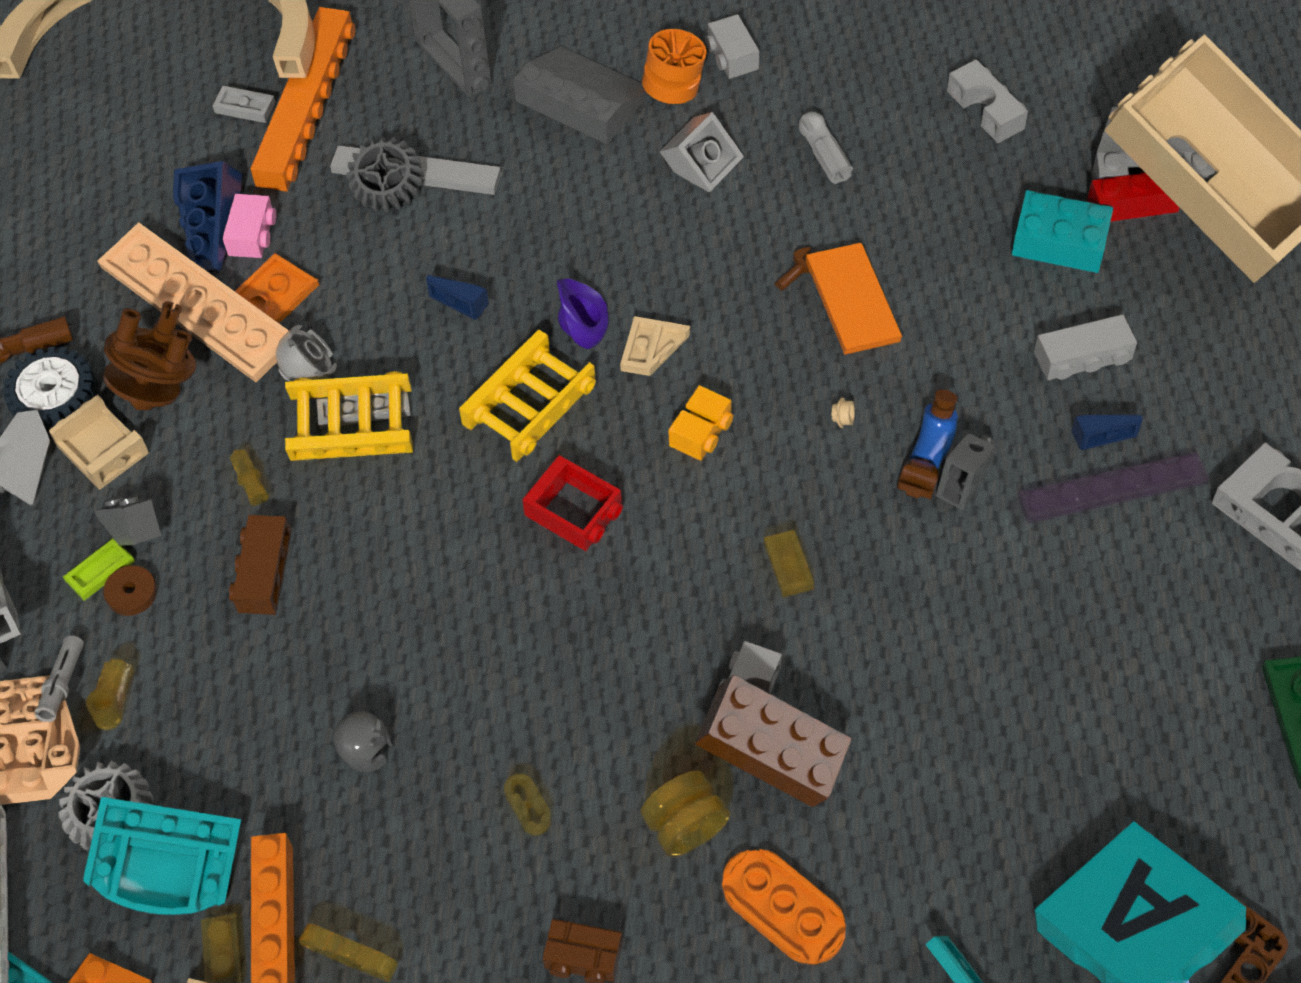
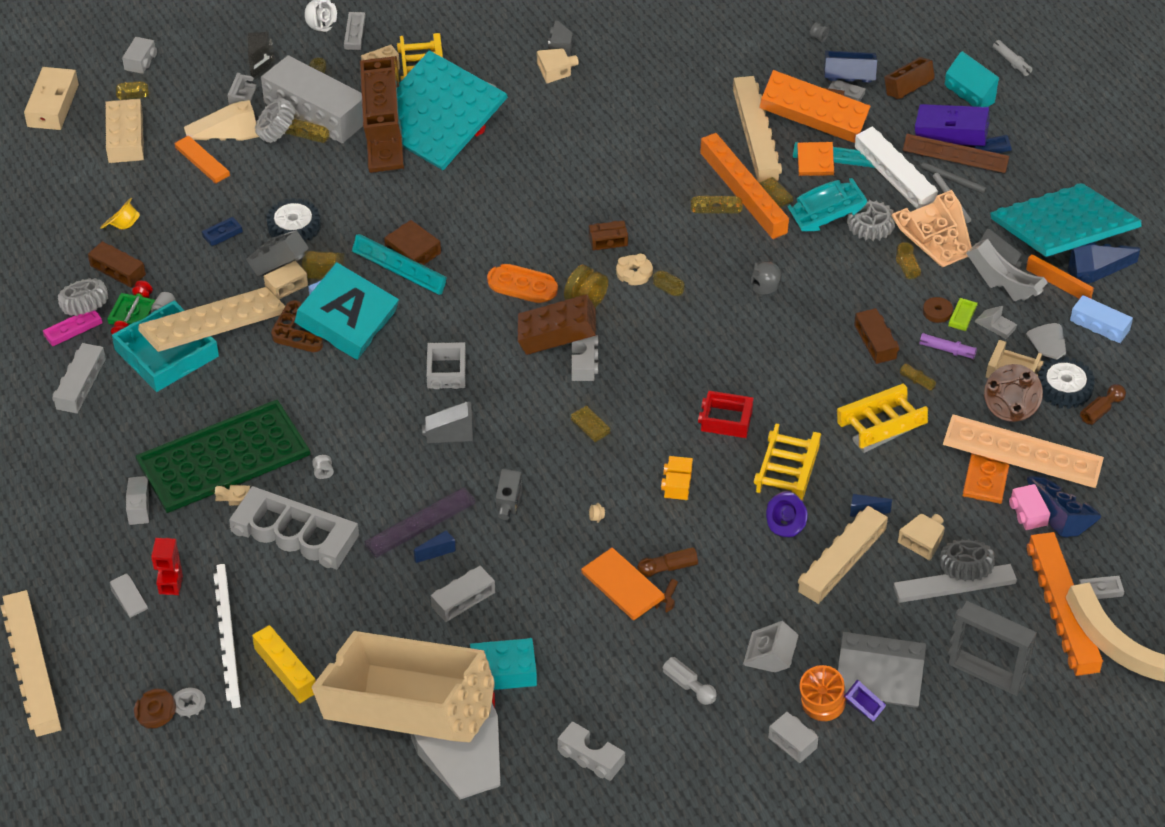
camera: 155 degrees right, 10 degrees down
(56, 687) = (934, 249): light grey pin -> none
(63, 534) = (996, 323): none -> light grey slope
(129, 520) = (962, 330): dark grey slope -> none
(167, 514) = (948, 346): none -> medium lavender pin
(304, 355) = (929, 433): light grey cylinder -> none
(413, 233) = (923, 535): none -> tan torso
(536, 239) = (842, 554): none -> tan brick
(584, 873) = (639, 262): none -> tan plate
(627, 59) = (864, 700): none -> dark purple slope
(651, 344) = (733, 516): tan wing -> none
(774, 306) = (669, 562): none -> reddish brown piece
(933, 443) = (535, 507): piece -> none
(976, 783) = (446, 351): none -> light grey window
(1021, 621) = (449, 425): none -> dark grey slope
(1248, 624) = (322, 466): none -> light grey wheel

